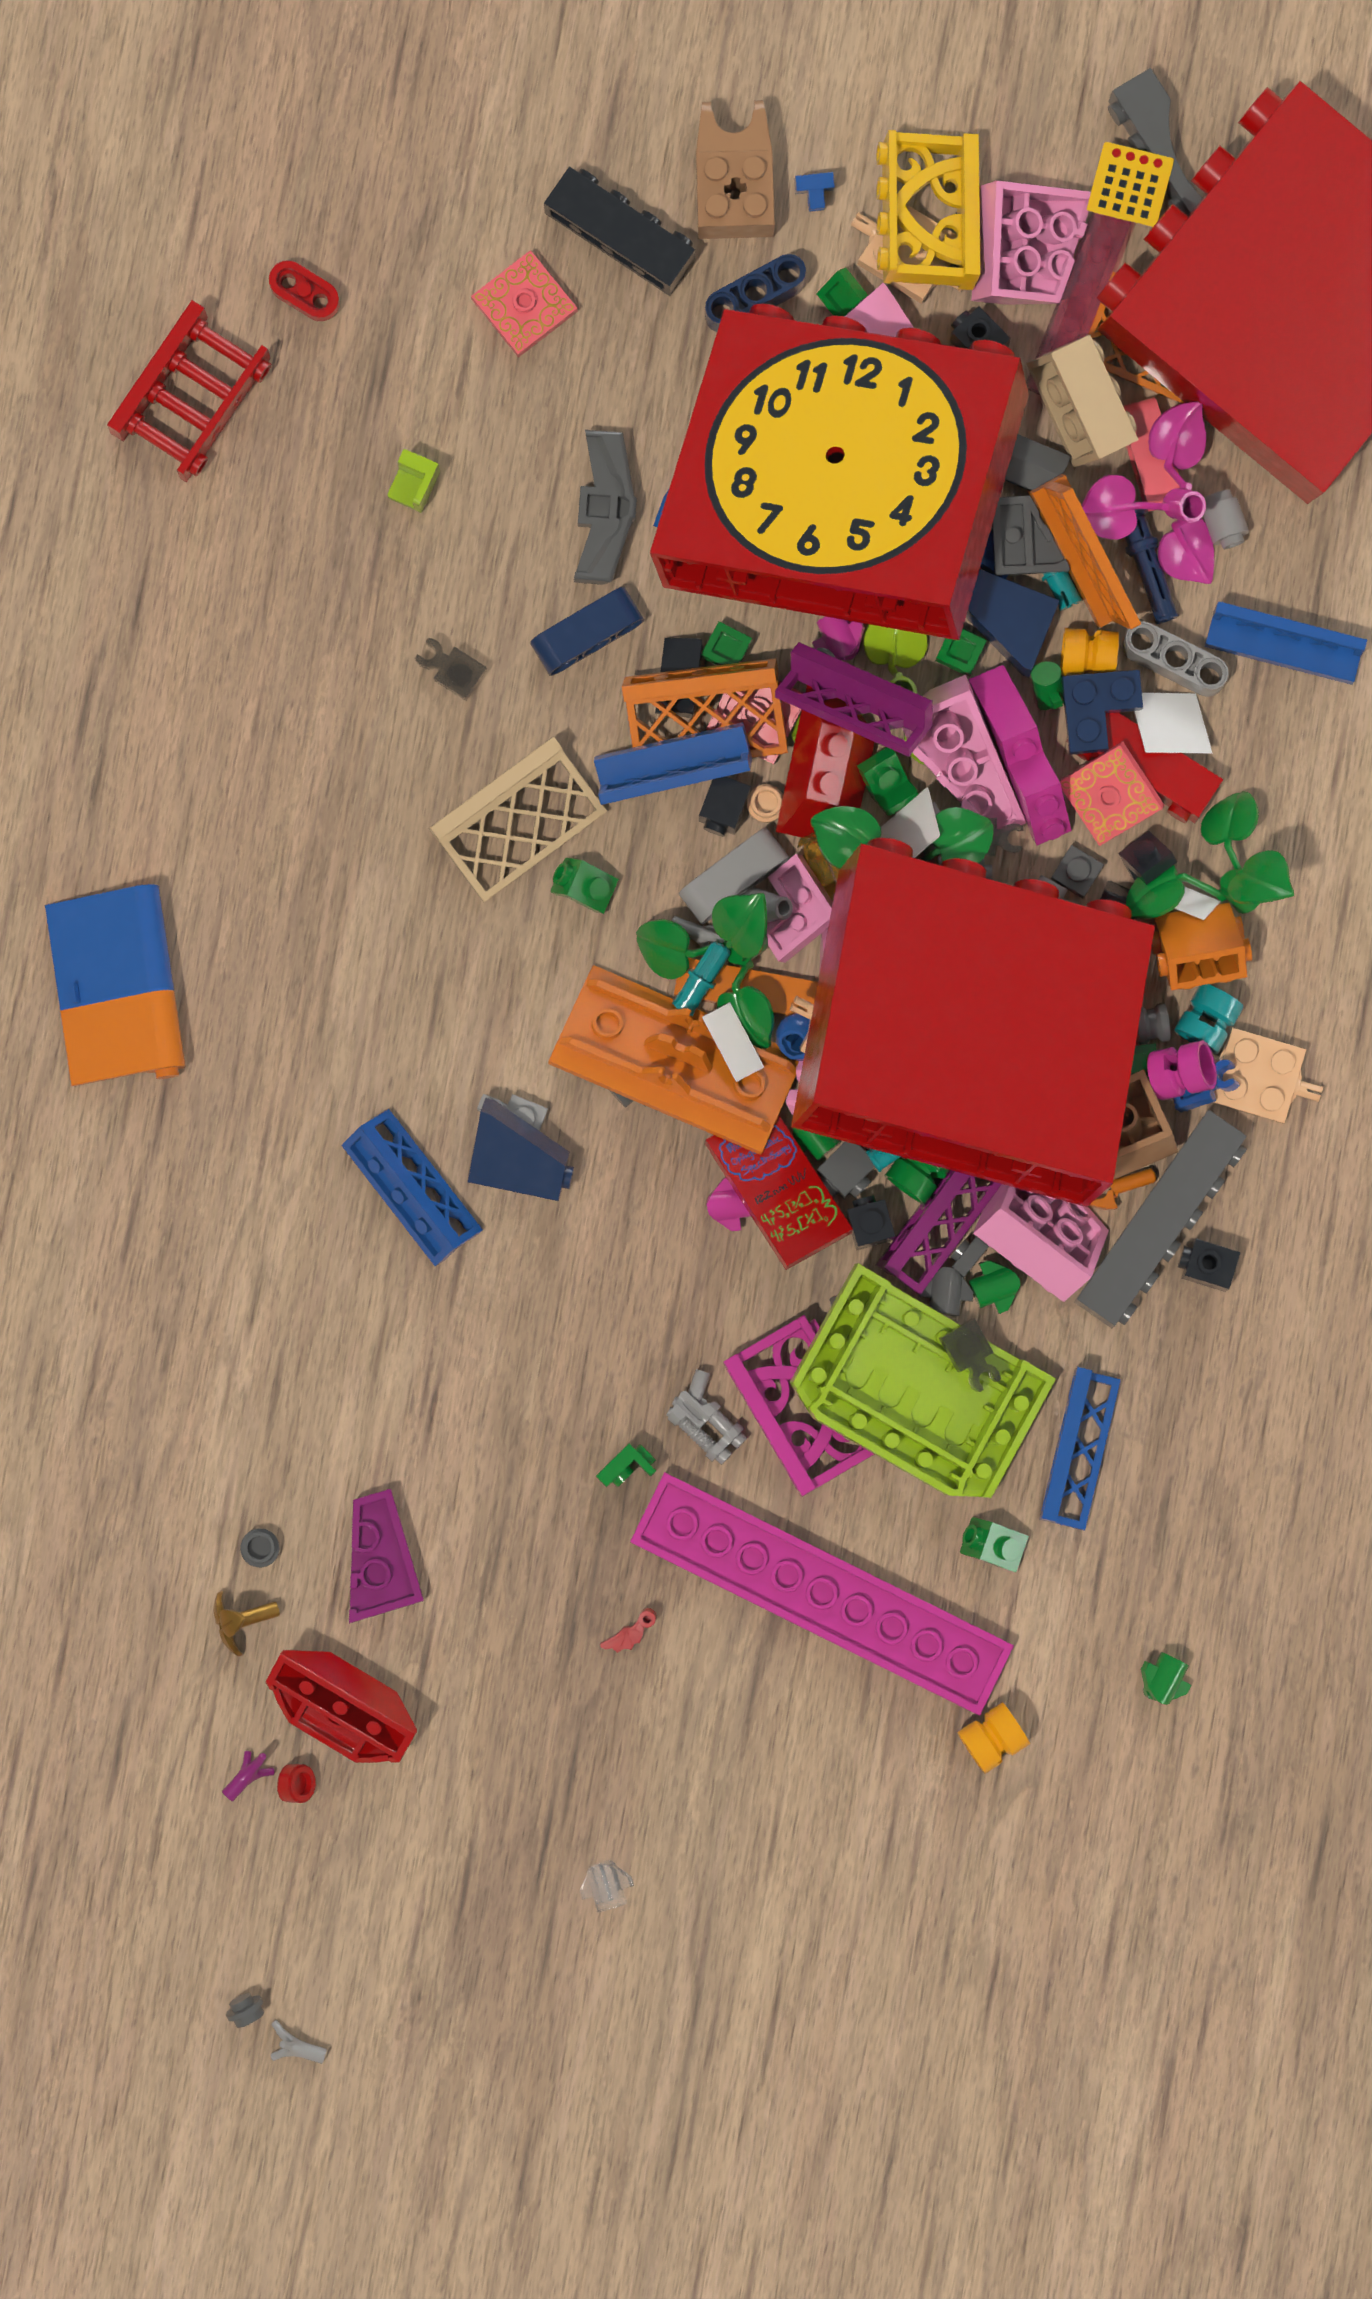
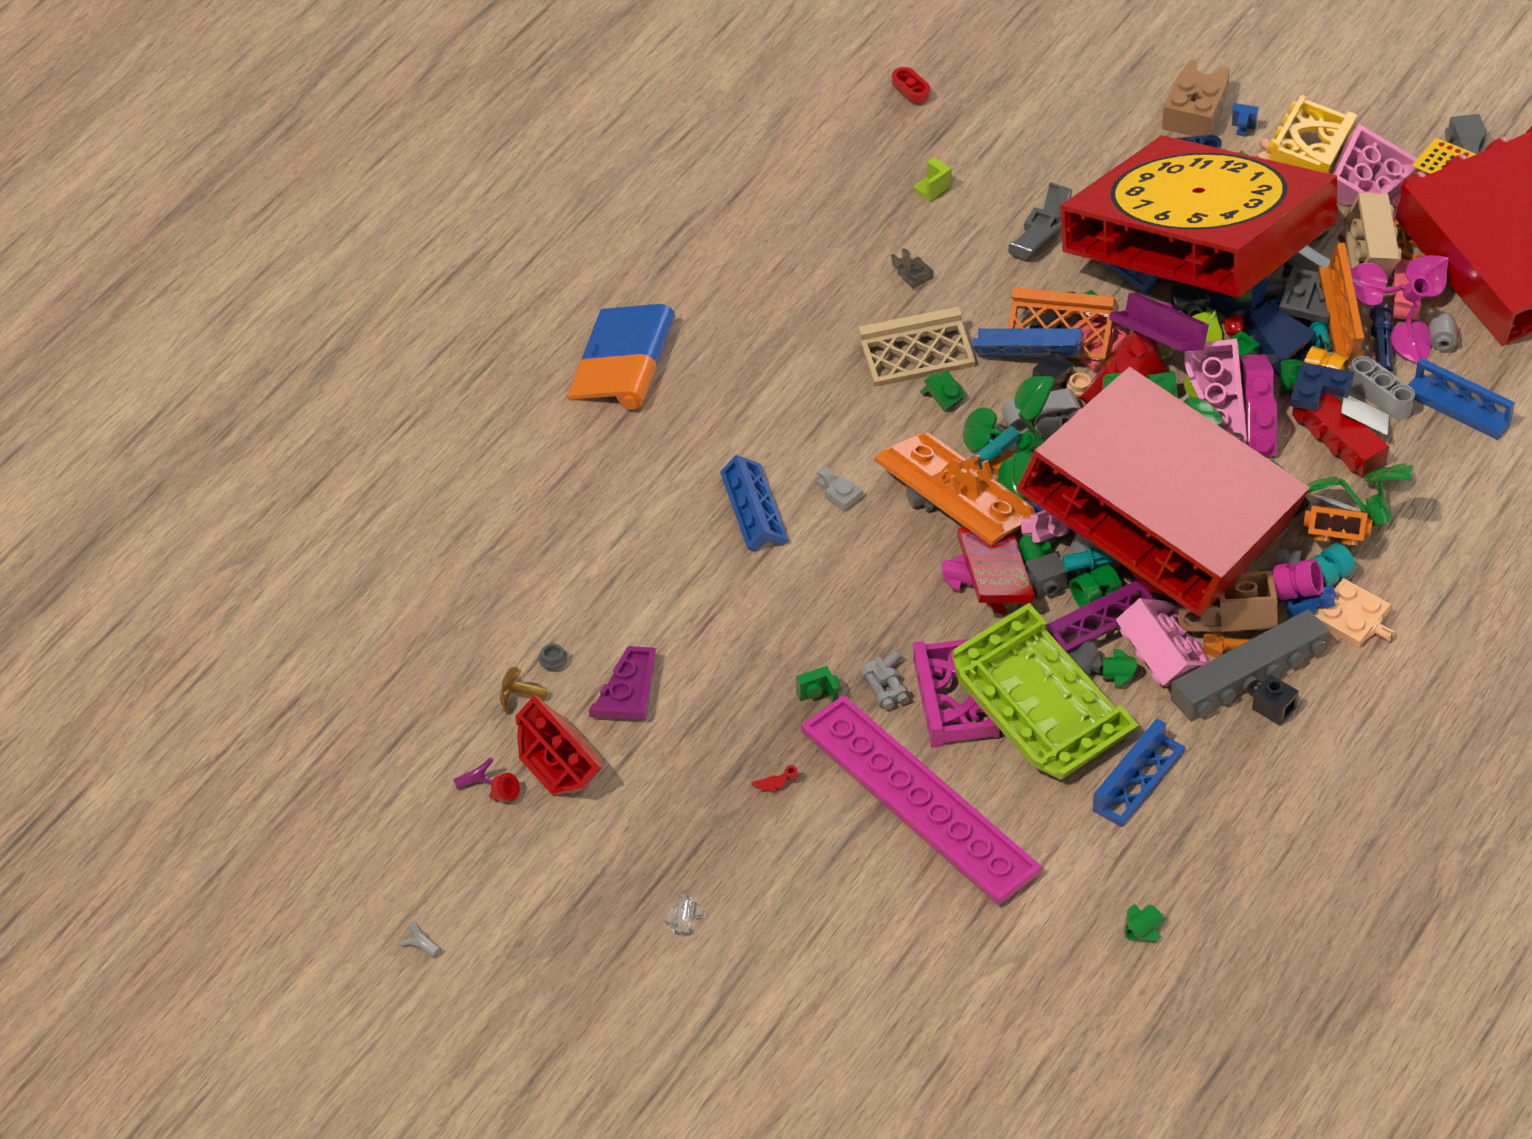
camera: 25 degrees right, 35 degrees down
(172, 357) = (813, 90): red fence -> none
(245, 2010) = (397, 903): dark grey plate -> none
(517, 1156) = (828, 501): dark blue slope -> none
(524, 303) = (1041, 126): coral plate -> none
(587, 631) = (1004, 273): dark blue beam -> none
(620, 230) = (1115, 106): black brick -> none
(733, 1042) = (1000, 482): white sticker -> none
(870, 1222) = (1049, 602): black brick -> none
(967, 1255) = (1108, 641): dark grey plate -> none
(967, 1349) = (1084, 684): clear smoke plate -> none
(993, 1544) = (1054, 807): bracket -> none
(993, 1737) = (1002, 914): light orange wheel -> none
(1111, 793) = (1310, 435): coral plate -> none
(1147, 858) = (1320, 469): black bracket -> none

